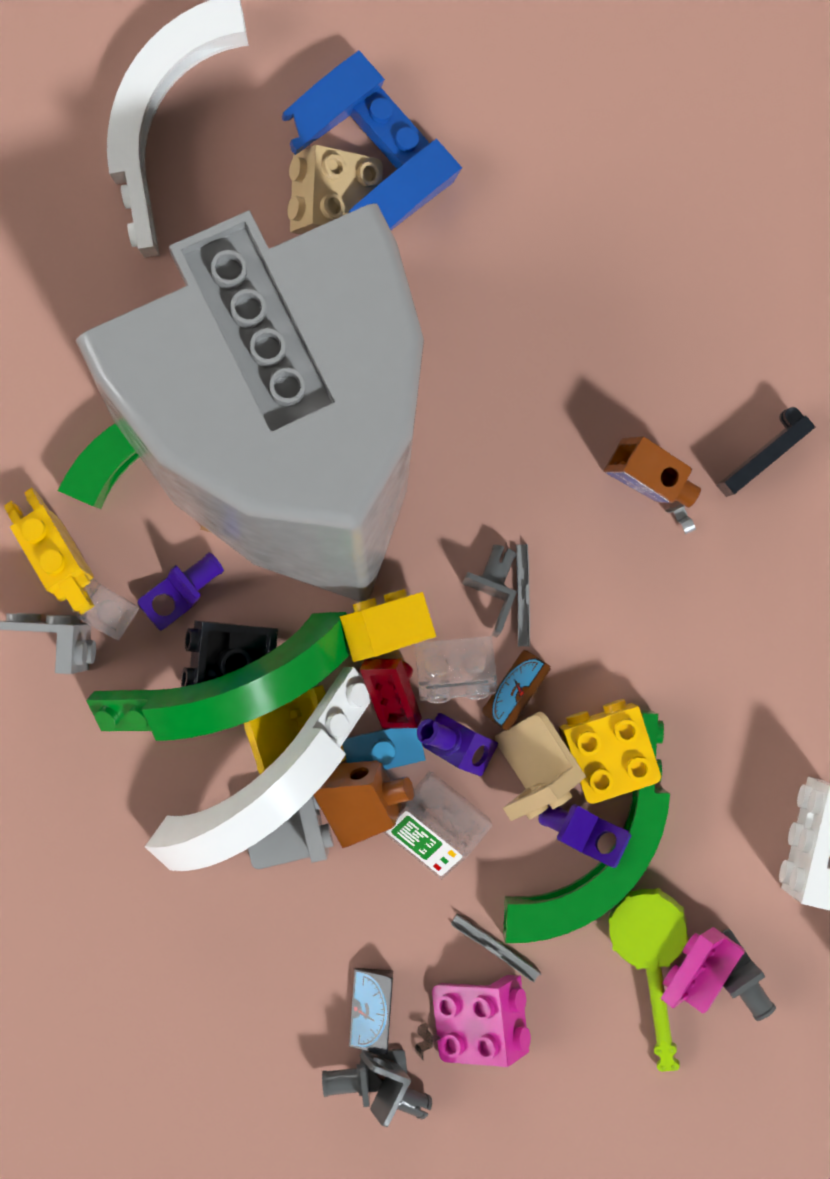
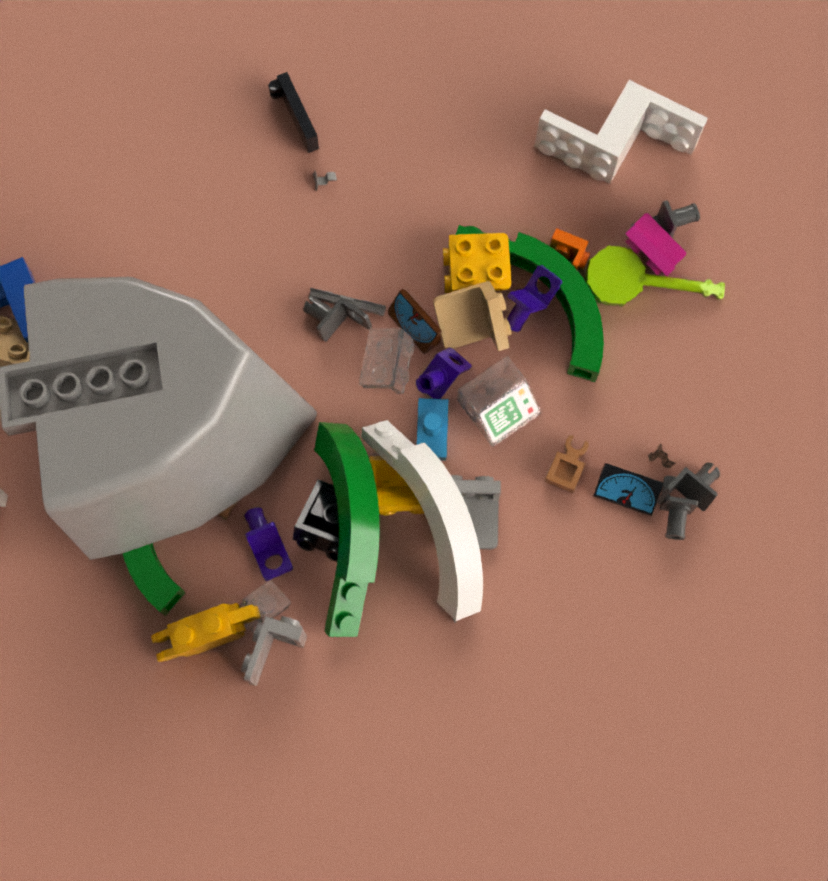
camera: 80 degrees left, 15 degrees down
(362, 800) = (465, 445): dark orange torso -> none
(374, 929) = (567, 468): none -> medium nougat plate
(387, 626) = (337, 394): yellow brick -> none
(391, 692) = (390, 406): dark red tile -> none
(482, 1022) = (655, 412): dark pink bracket -> none
(495, 947) = (603, 389): light grey piece -> none
(652, 472) = (283, 187): dark orange torso -> none
(672, 858) = (571, 247): none -> orange bracket

